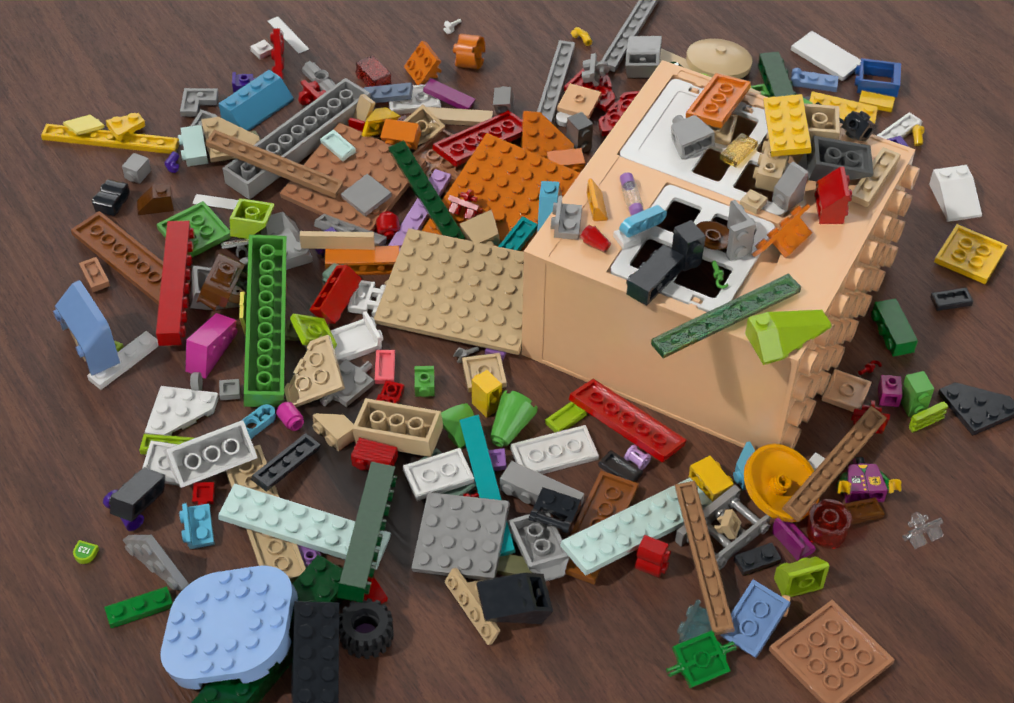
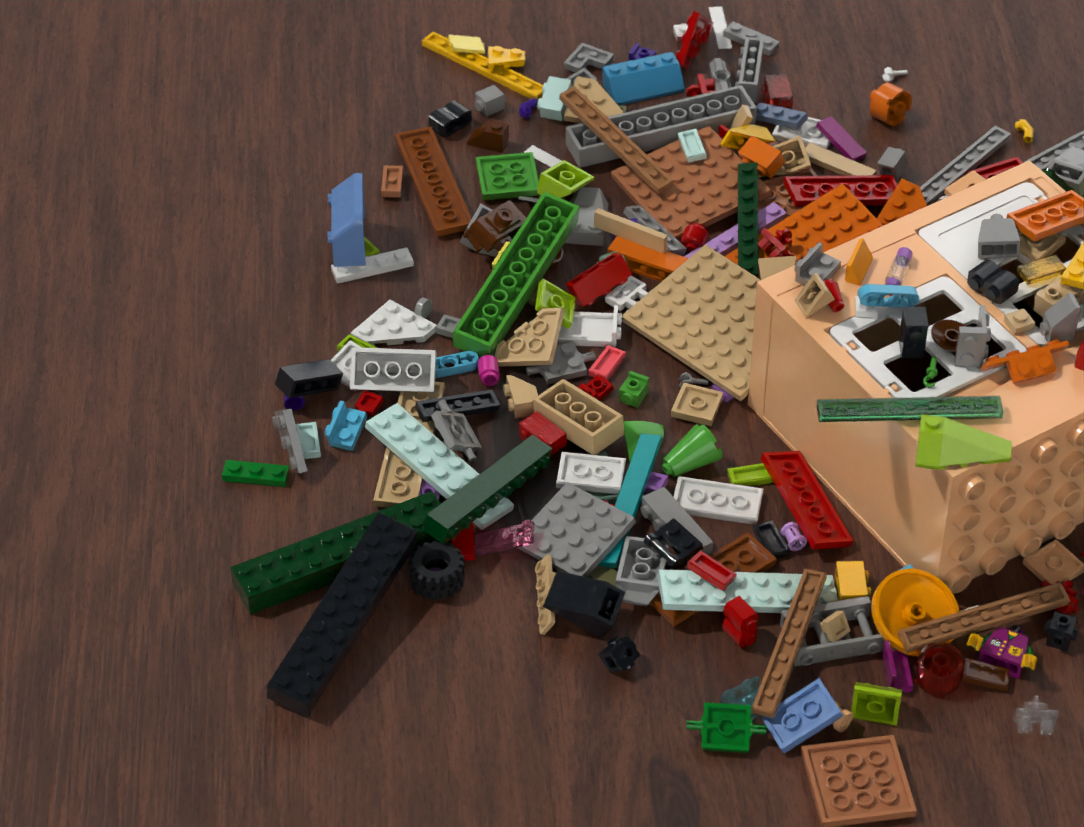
camera: 30 degrees right, 5 degrees down
(85, 552) = (238, 410): tile -> none
(172, 550) = (309, 440): none -> light aqua tile
(175, 283) = (456, 213): red brick -> none
(209, 344) = (455, 279): dark pink wedge -> none
(229, 626) = (315, 514): light blue plate -> none
(301, 487) = (456, 431): none -> light grey plate
(320, 35) = (739, 32): none -> light grey plate
(338, 58) = (750, 66): none -> light grey brick
(366, 195) = (689, 201): light grey tile -> none
(405, 569) = (505, 538): none -> clear pink plate
(423, 64) = (833, 100): orange plate -> none
(486, 393) = (681, 417): yellow brick -> none
(571, 634) = (619, 654): none -> black brick
(586, 246) = (813, 296): none -> tan slope
(594, 69) = (1006, 162): light grey hips -> none
(604, 521) = (711, 570): none -> red tile
(654, 274) = (865, 347): black brick -> none
(712, 175) = (993, 281): none -> black brick
(757, 559) = (848, 672): black plate -> none
(892, 446) = (1061, 631): none -> black brick

